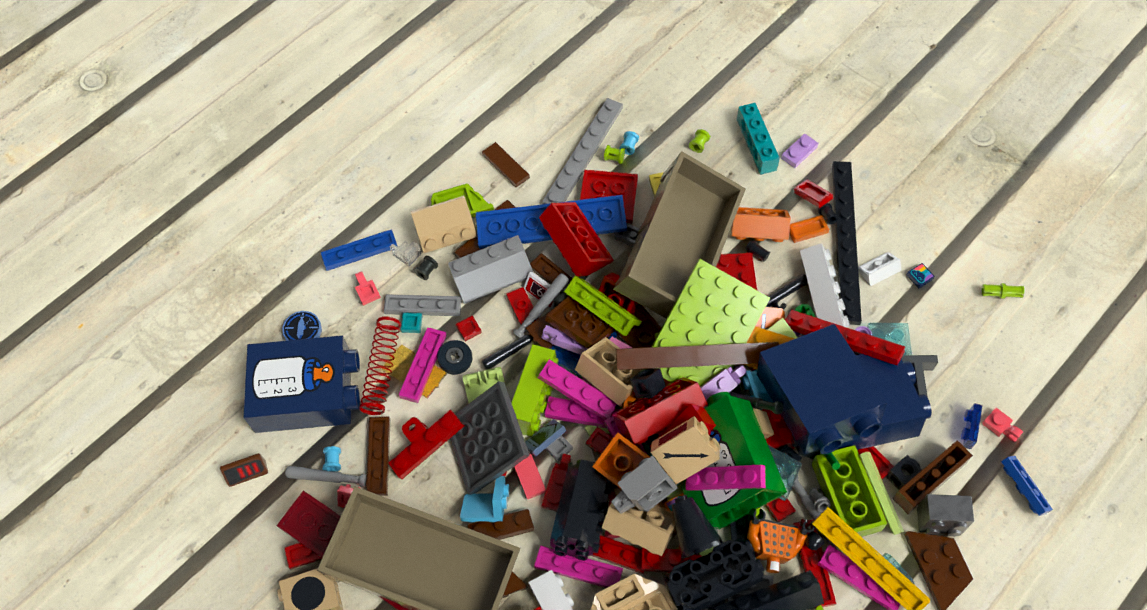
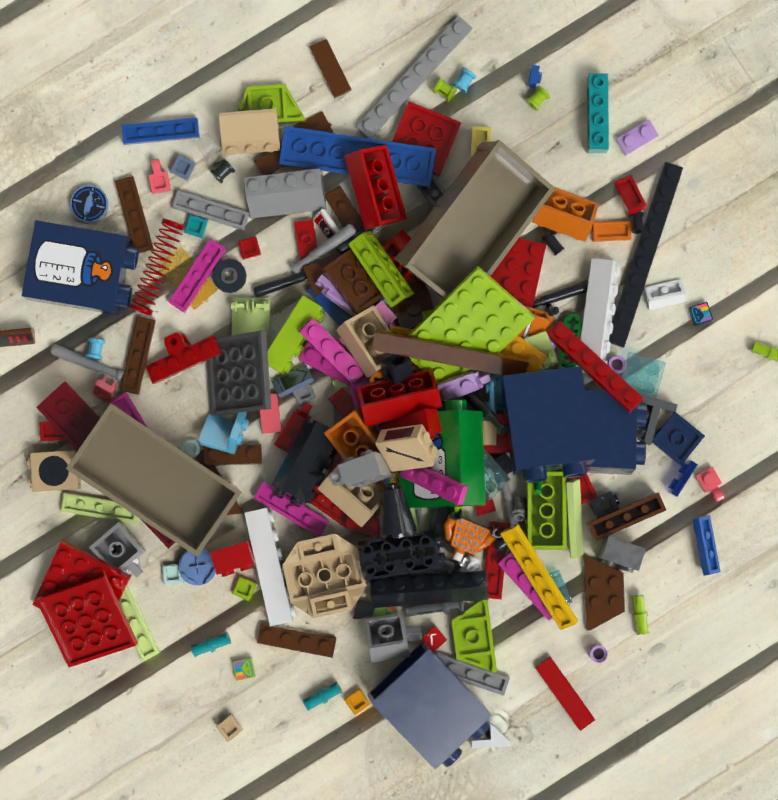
camera: 10 degrees right, 25 degrees up
(348, 326) = (134, 214): none -> reddish brown tile
(387, 274) = (183, 168): none -> sand blue plate
(691, 125) = (535, 76): none -> blue plate
(788, 570) = (469, 564): none -> white gear
(950, 390) = (677, 438): none -> dark blue plate
(991, 578) = (640, 614): none -> lime pin

